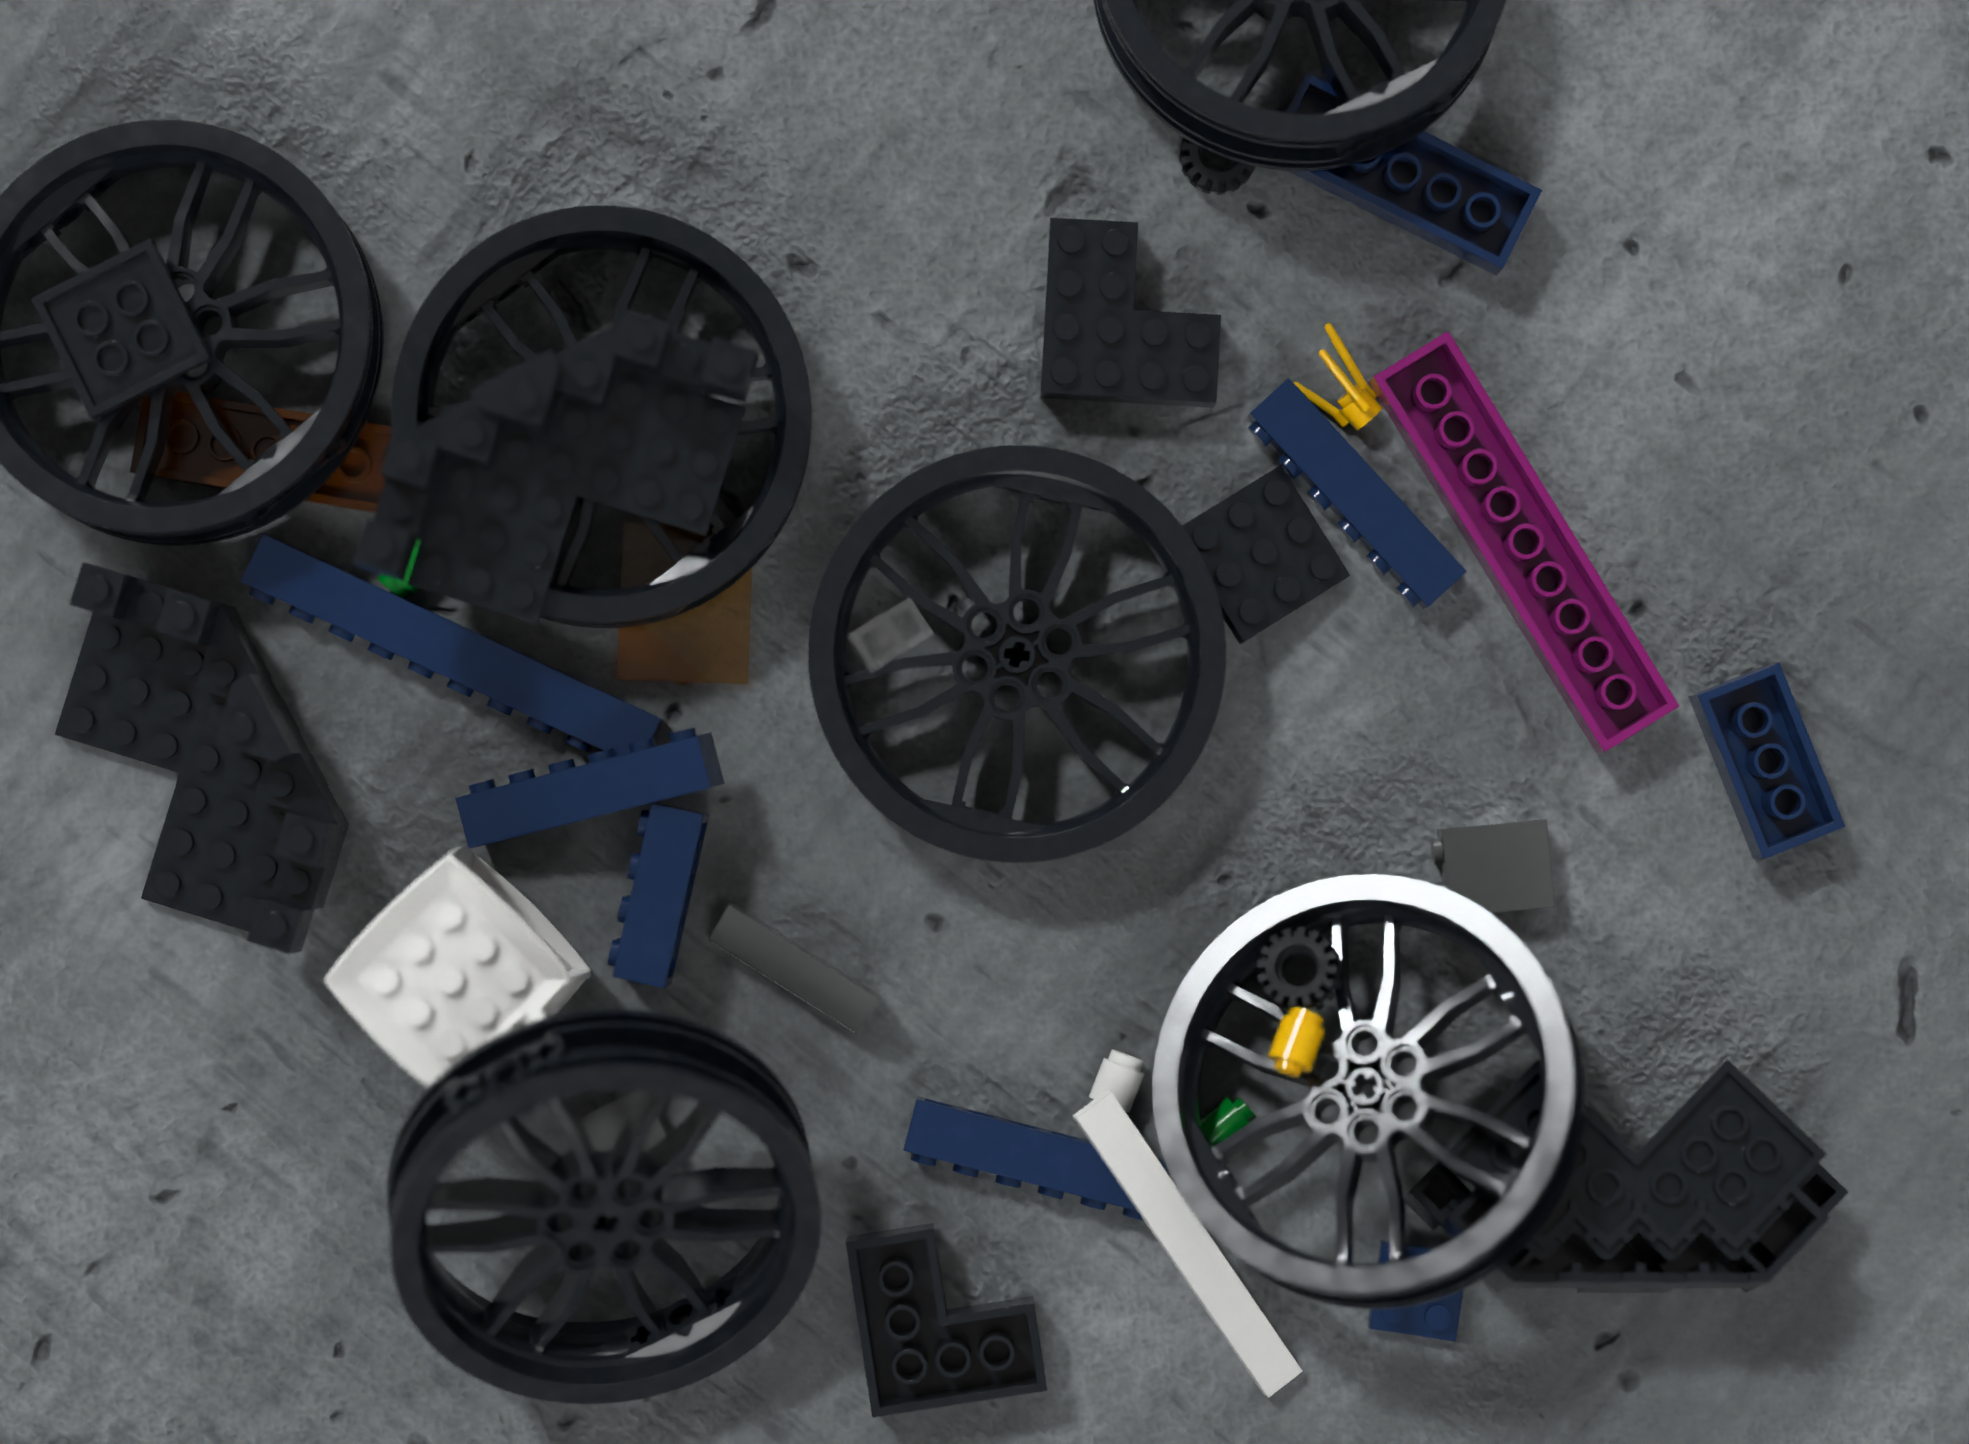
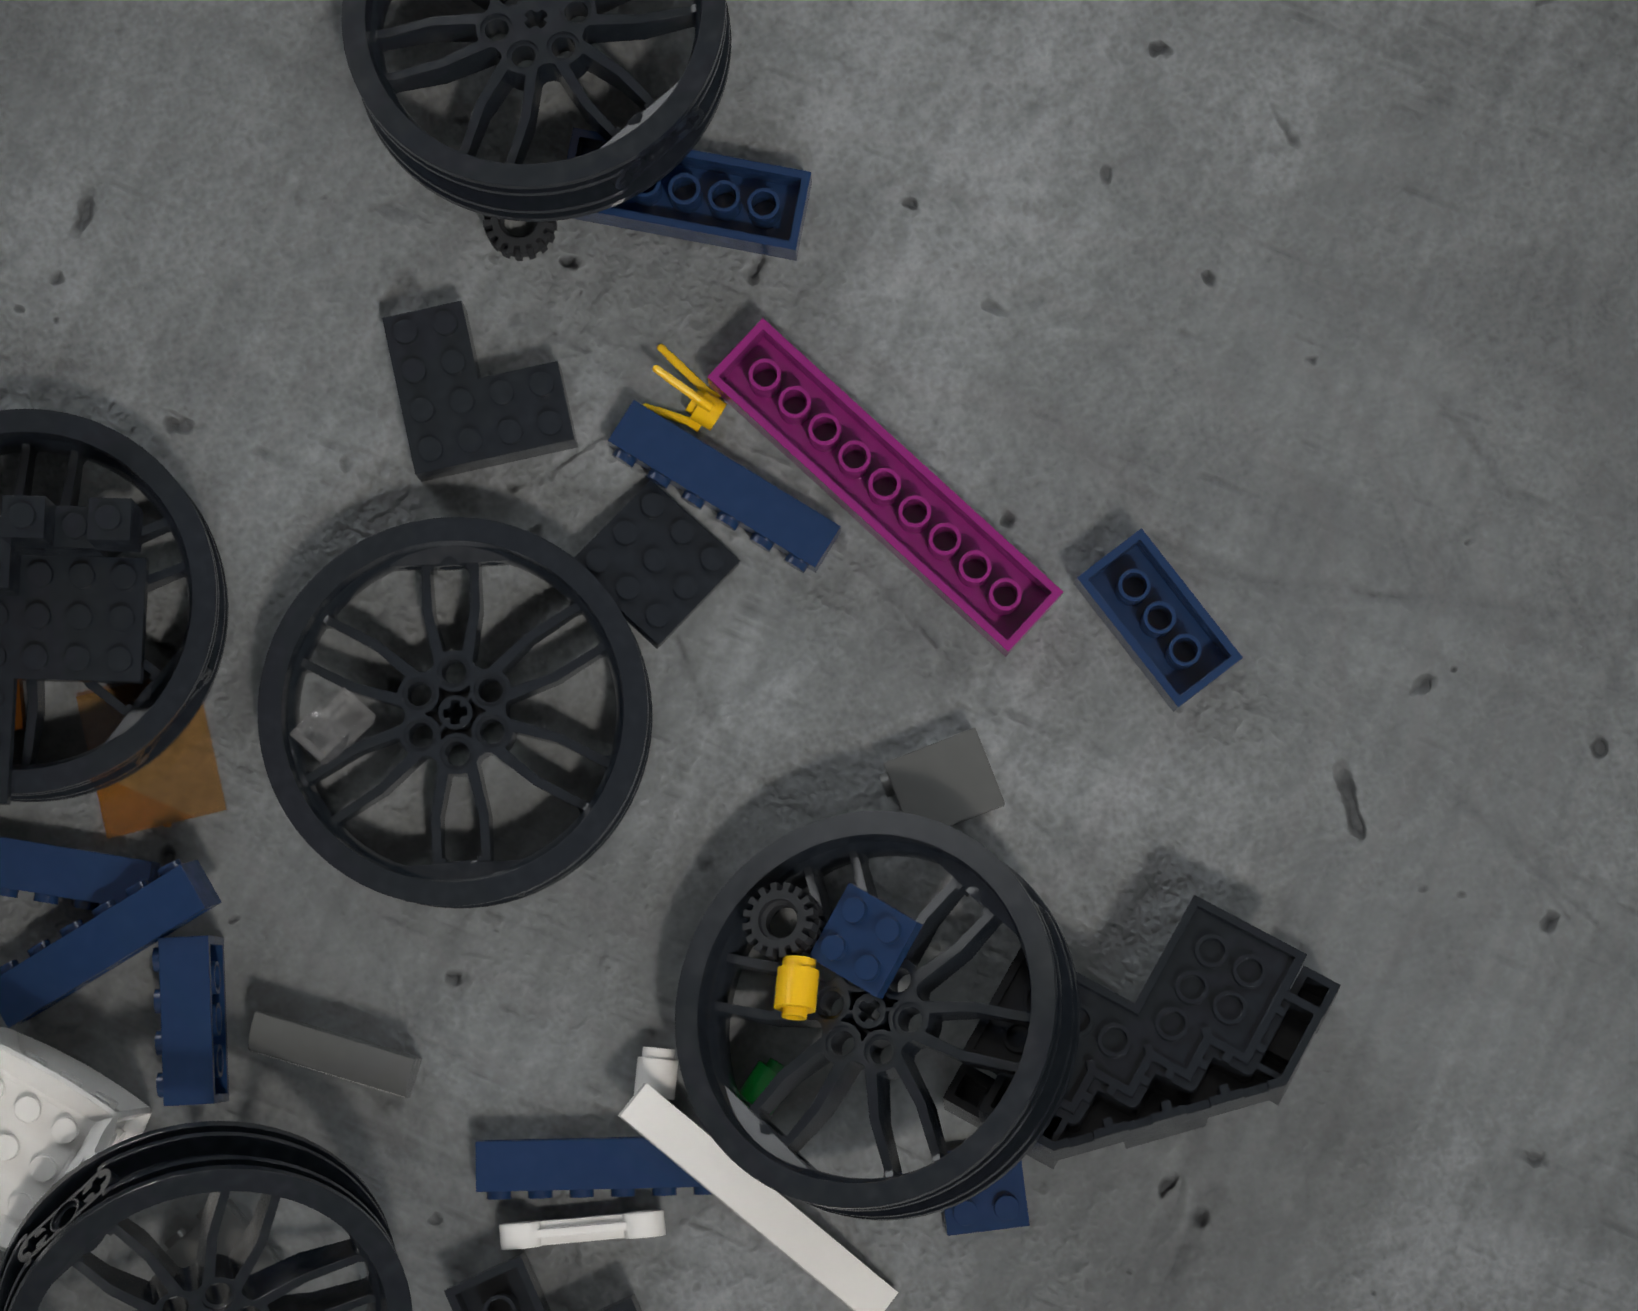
camera: 10 degrees left, 5 degrees down
(1047, 1226) = (582, 1229): none -> white piece
(1381, 1014) = (865, 940): none -> dark blue plate

